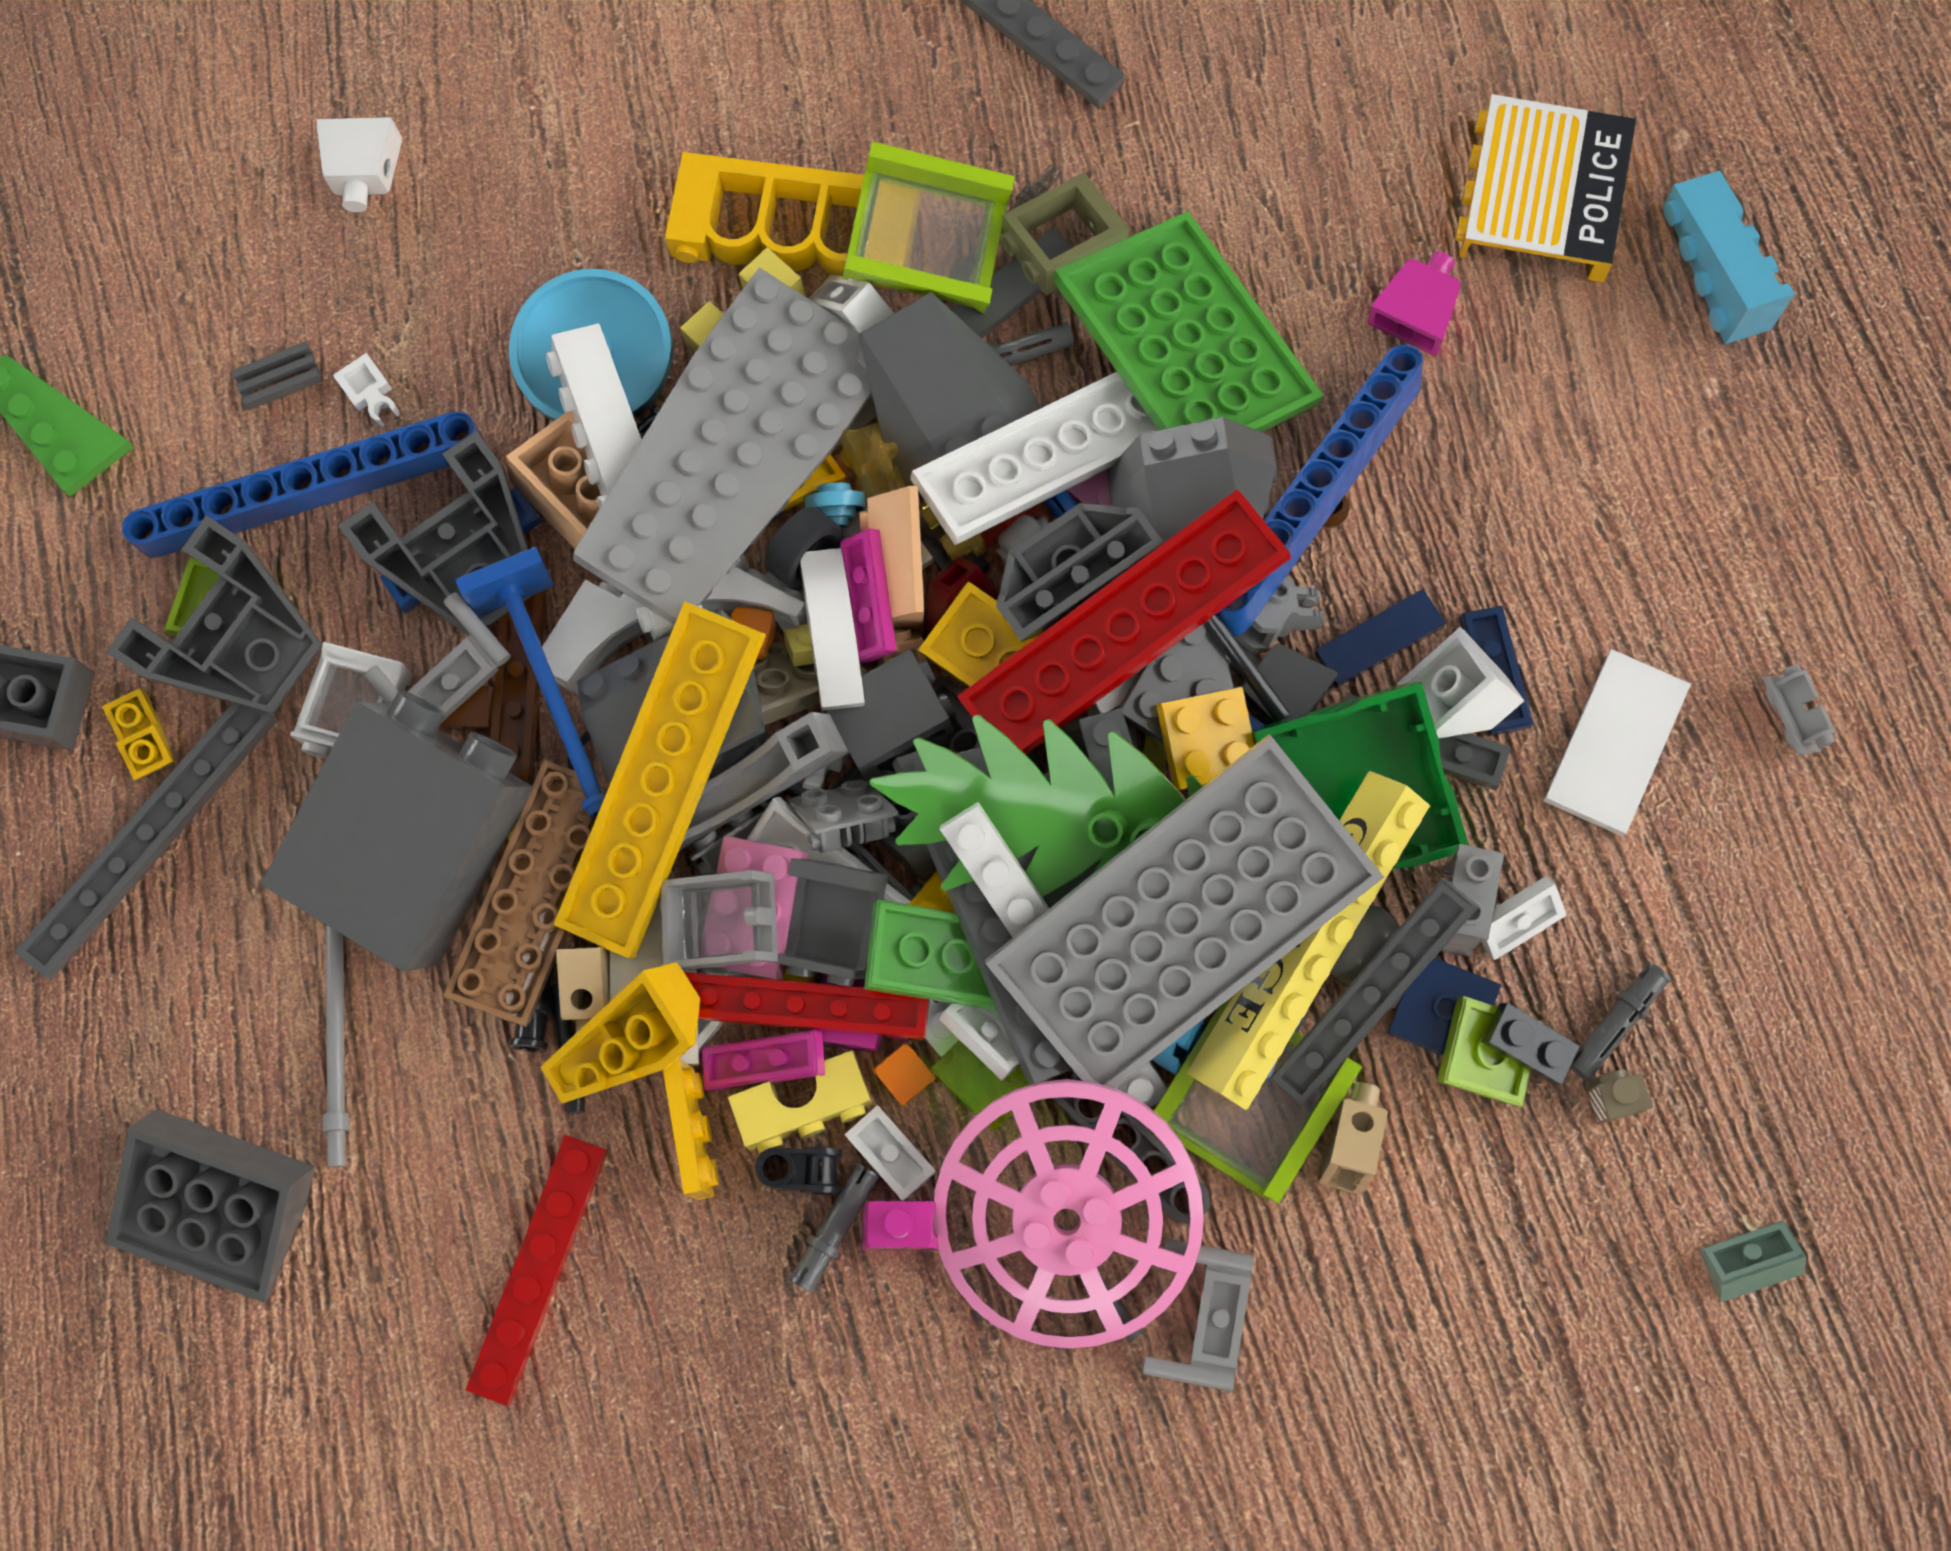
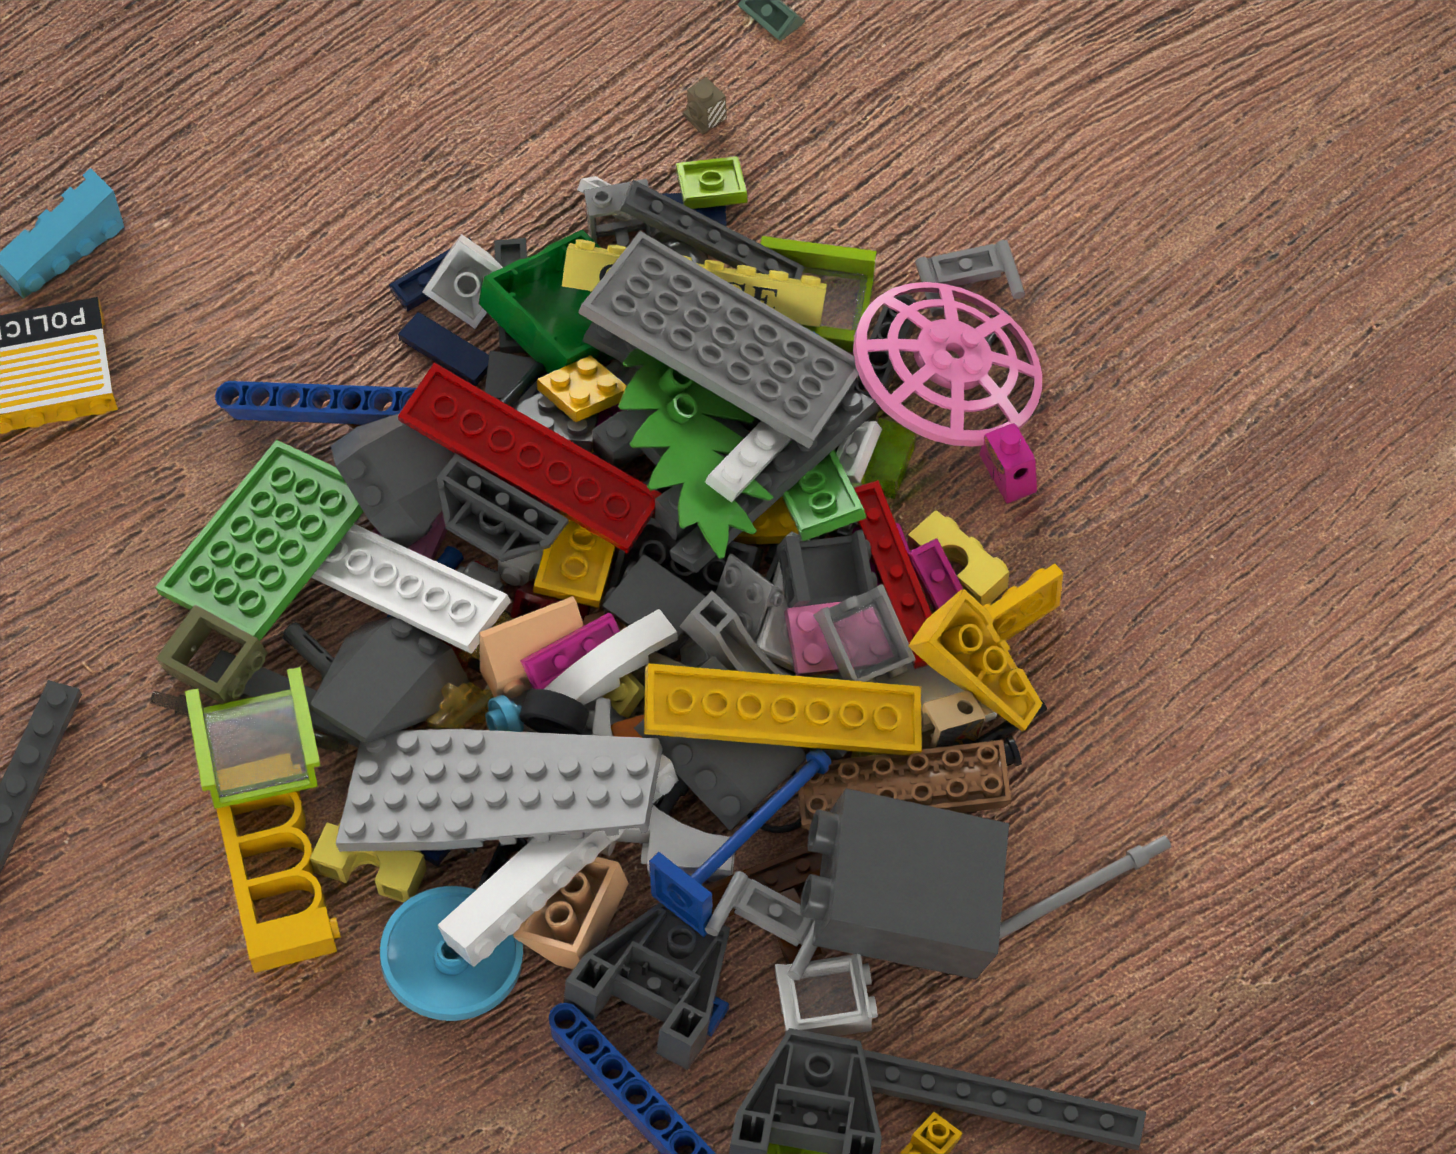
camera: 120 degrees left, 15 degrees down
(207, 1203) = (1240, 910): dark grey slope -> none
(366, 387) = (554, 1123): white plate -> none
(536, 1271) = (1161, 679): red plate -> none
(803, 1169) = (1004, 538): black piece -> none
(834, 1228) = (1032, 507): dark grey pin -> none
(852, 302) = (333, 783): white slope -> none
(890, 1153) = (964, 493): white plate -> none
(904, 1074) = (907, 511): orange slope -> none
(1355, 1141) = (813, 222): tan torso -> none
(1418, 303) = (172, 411): dark pink torso -> none
(1530, 1043) = (695, 159): plate -> none
(1617, 743) = (458, 189): white tile -> none
(1628, 1009) = (655, 124): dark grey pin -> none
(1803, 729) = (401, 88): light grey hinge -> none

